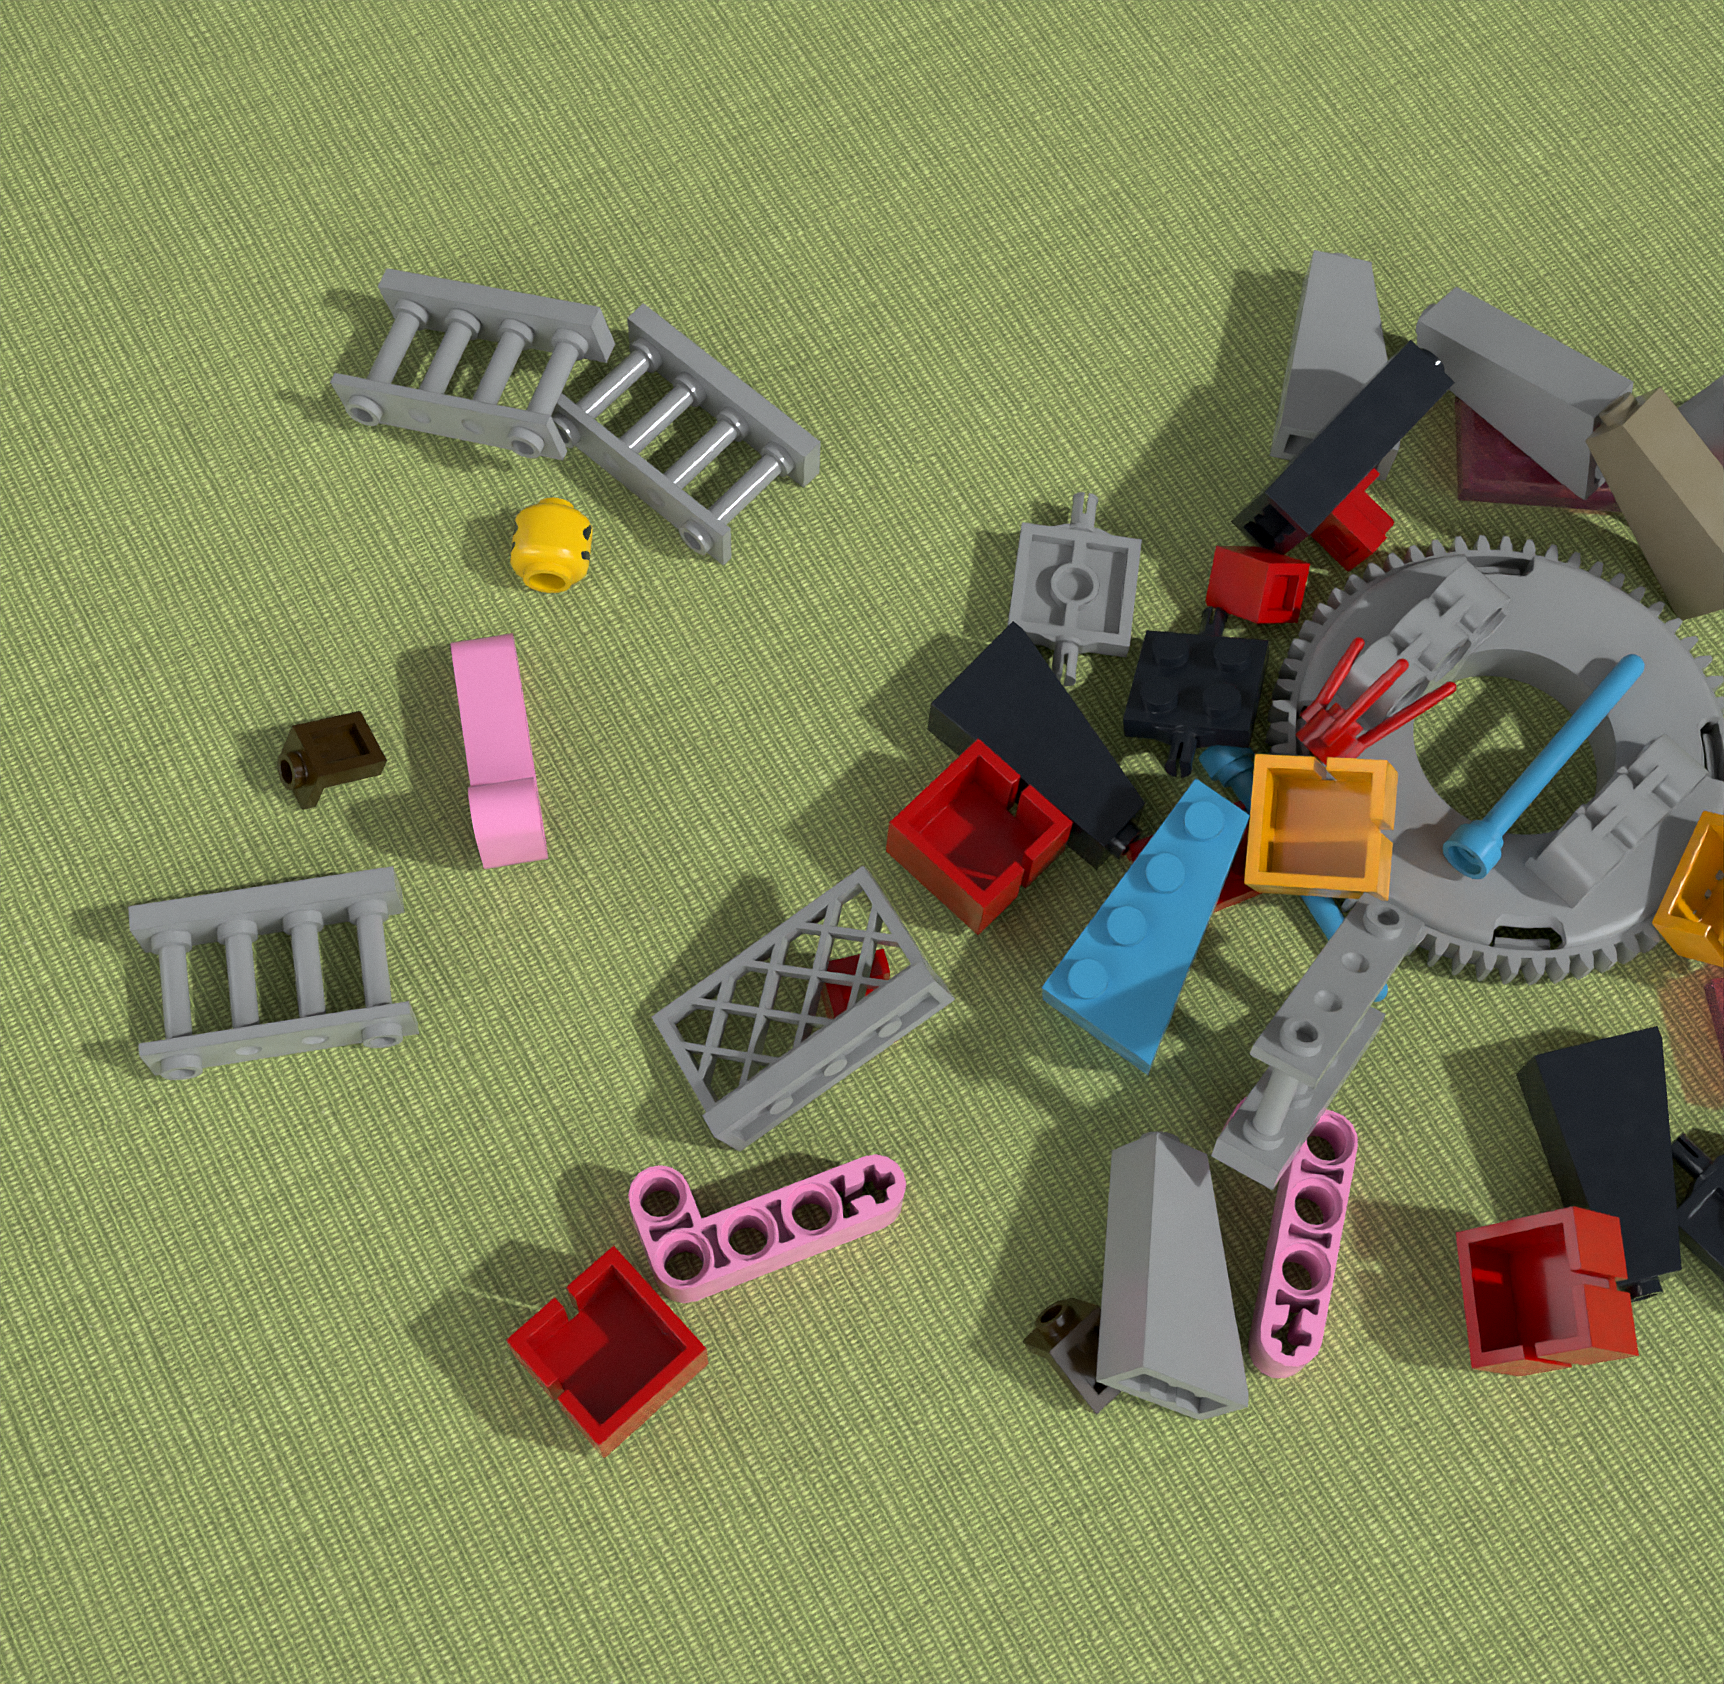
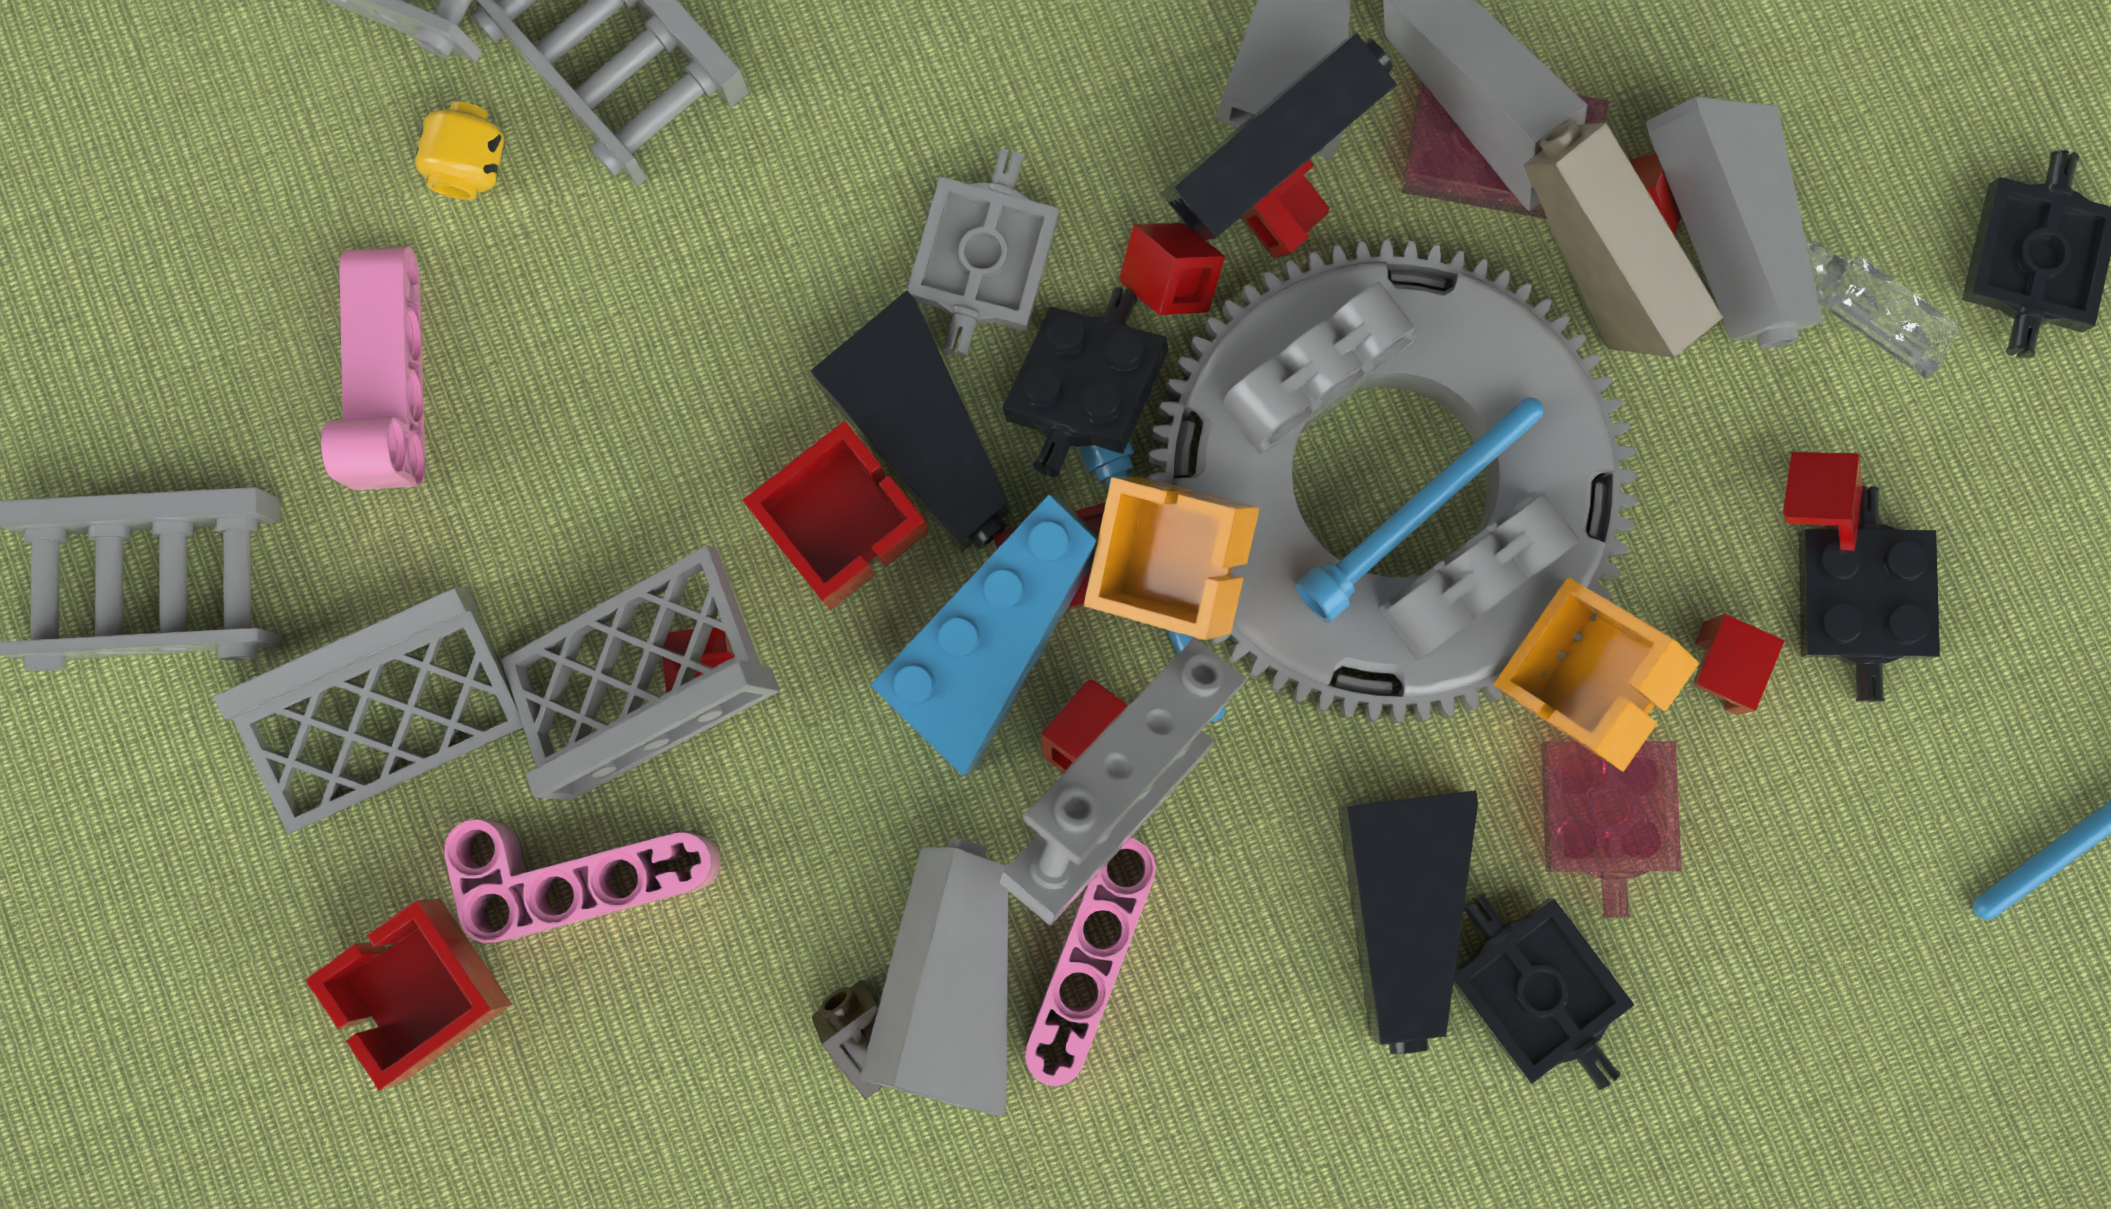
camera: 10 degrees right, 15 degrees up
(328, 755) = (216, 356): dark brown bracket -> none
(500, 1027) = (336, 666): none -> light grey fence
(1248, 1015) = (1079, 724): none -> red panel
(1335, 730) = (1207, 451): red plant -> none
(1546, 1292) = (1307, 1048): red piece -> none

